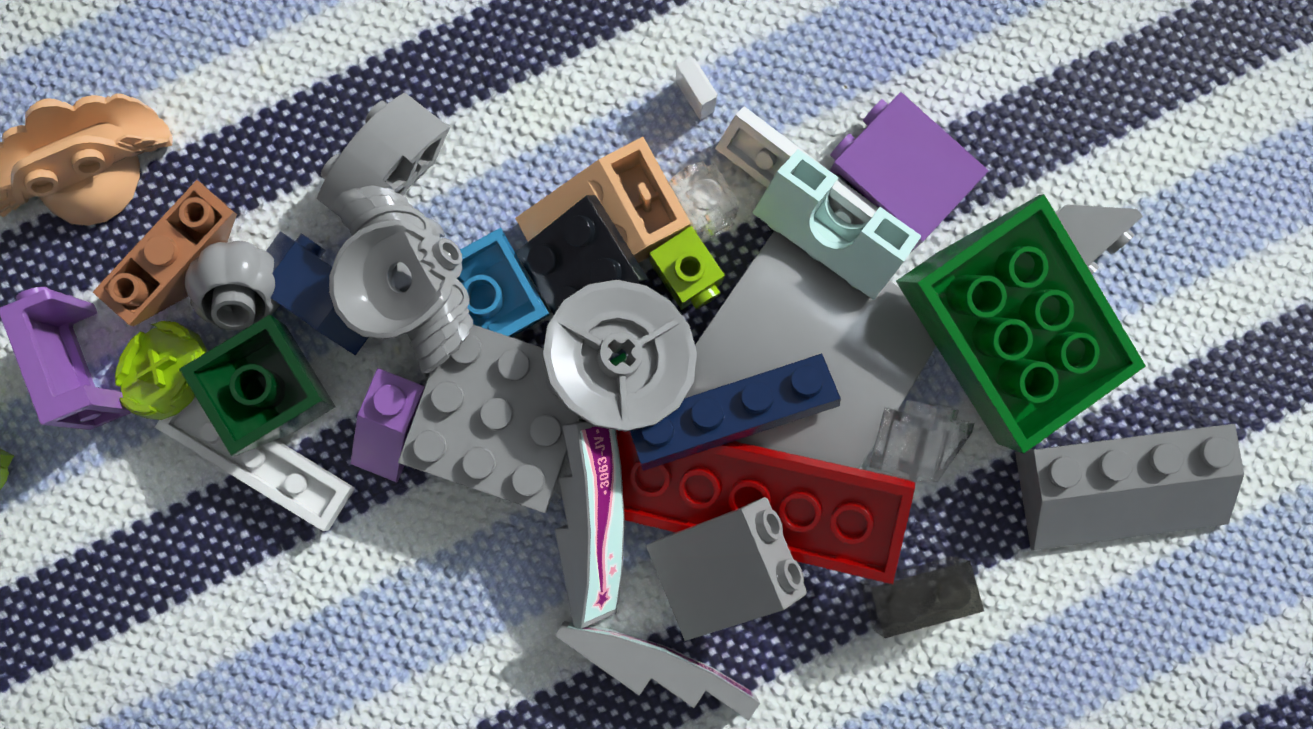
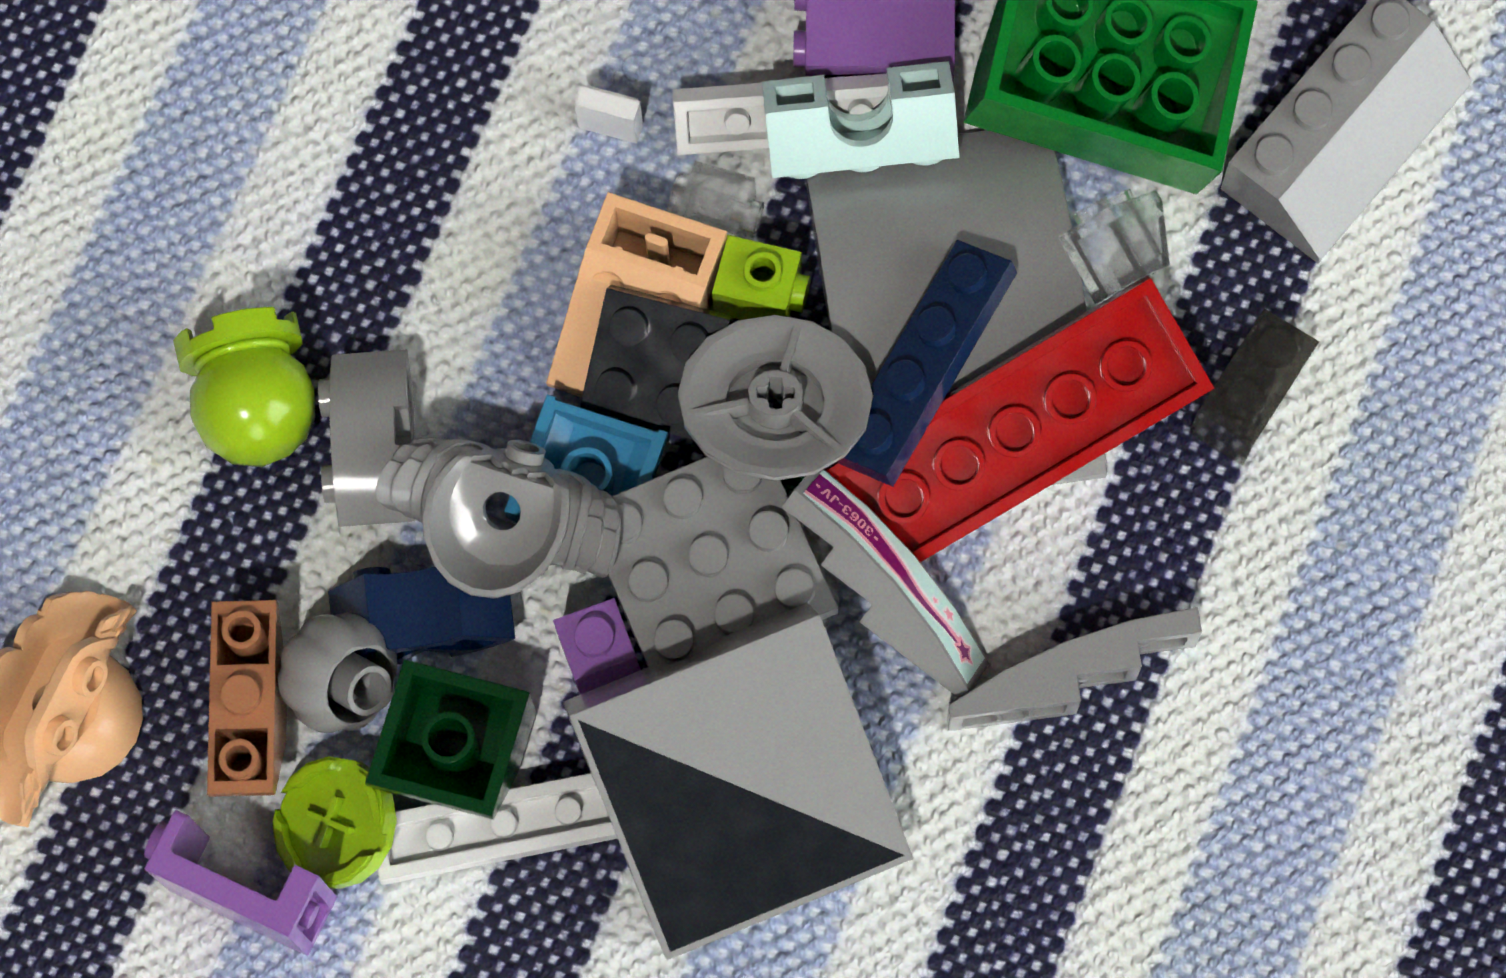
camera: 35 degrees left, 10 degrees down
(334, 74) = (249, 391): none -> lime tile
(389, 561) = (739, 780): none -> tile
(727, 570) = (1051, 511): light grey panel -> none

